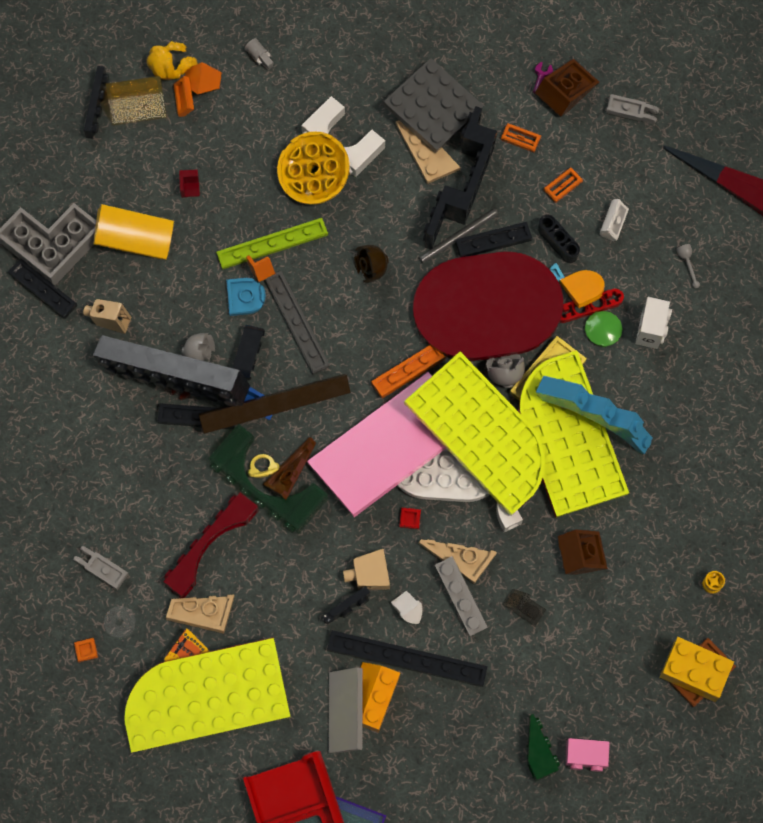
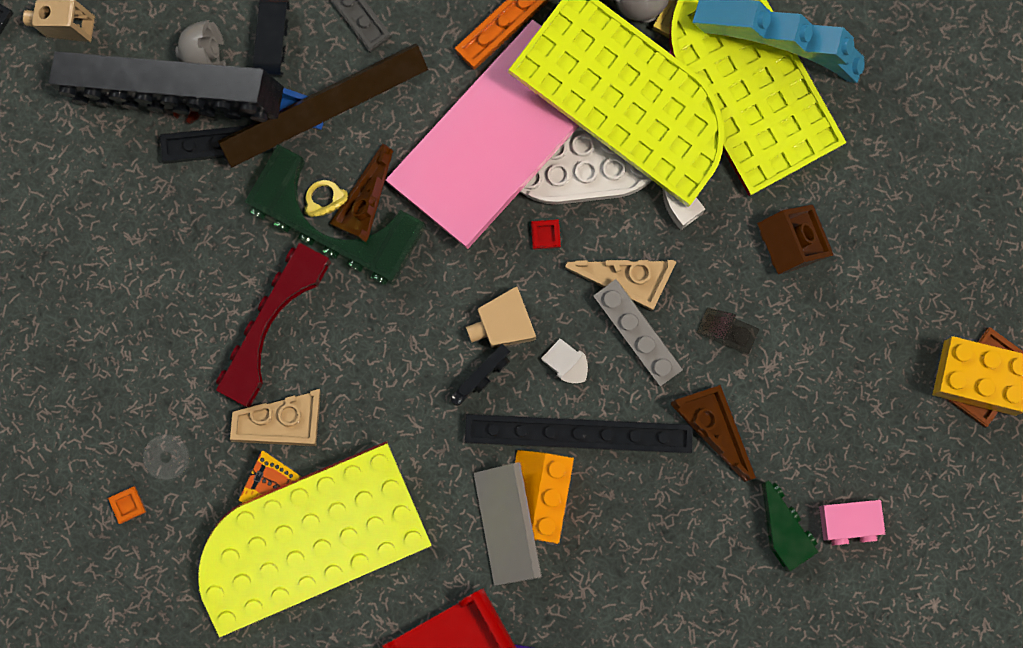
camera: 10 degrees left, 10 degrees up
(102, 568) = (127, 386): light grey hinge -> none
(502, 666) = (712, 419): none -> reddish brown wing
(713, 582) = (989, 244): yellow wheel -> none

